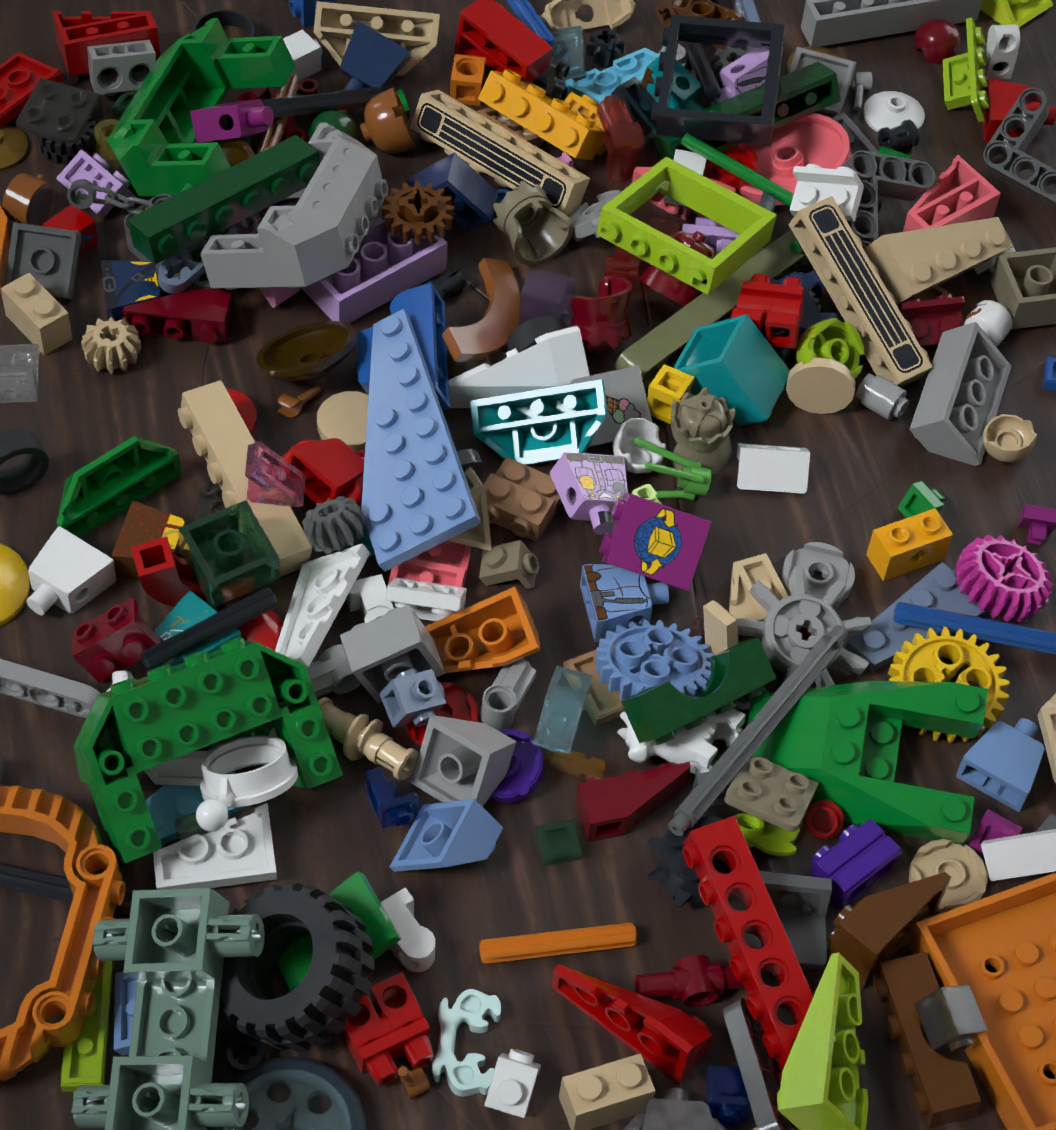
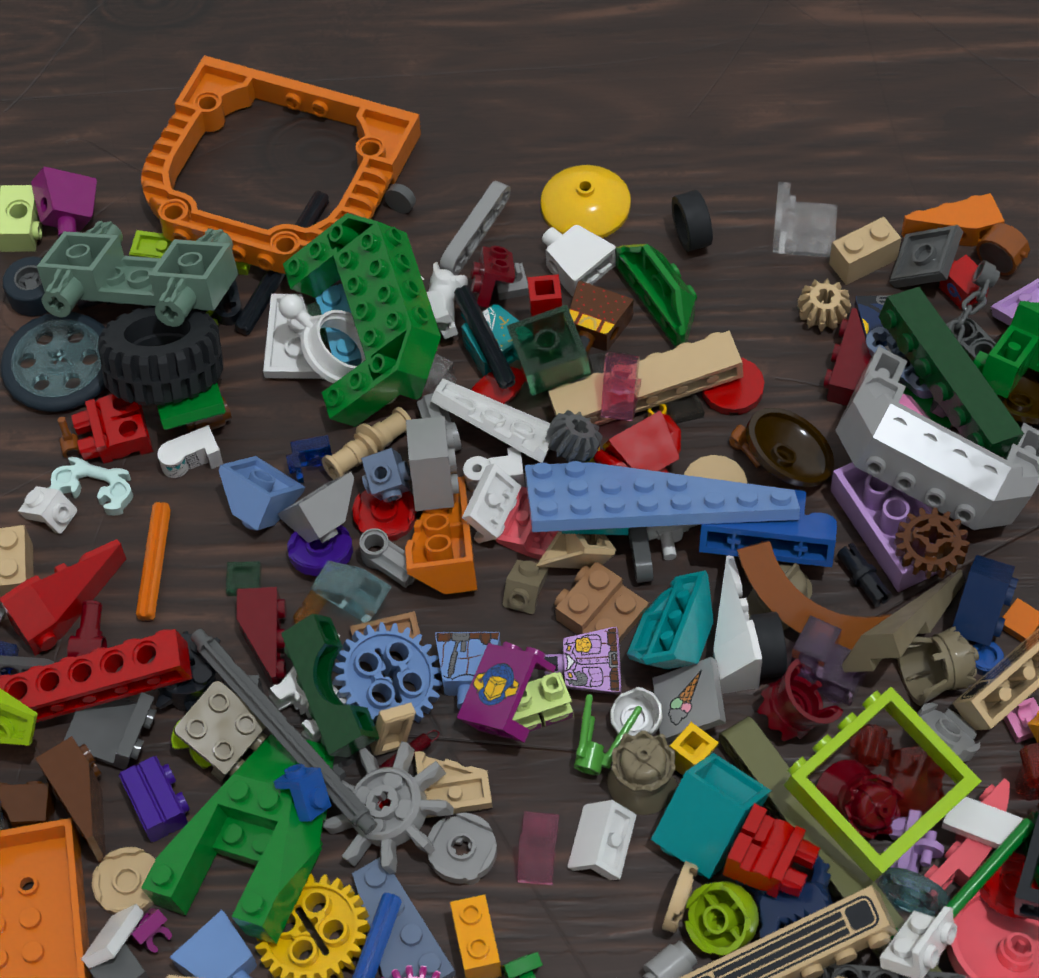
camera: 110 degrees right, 5 degrees up
(513, 237) = (897, 631): none -> dark tan wedge
(796, 517) = (537, 848): none -> clear pink slope
(822, 687) = (306, 789): none -> blue bracket
(824, 819) = (203, 786): red plate -> none

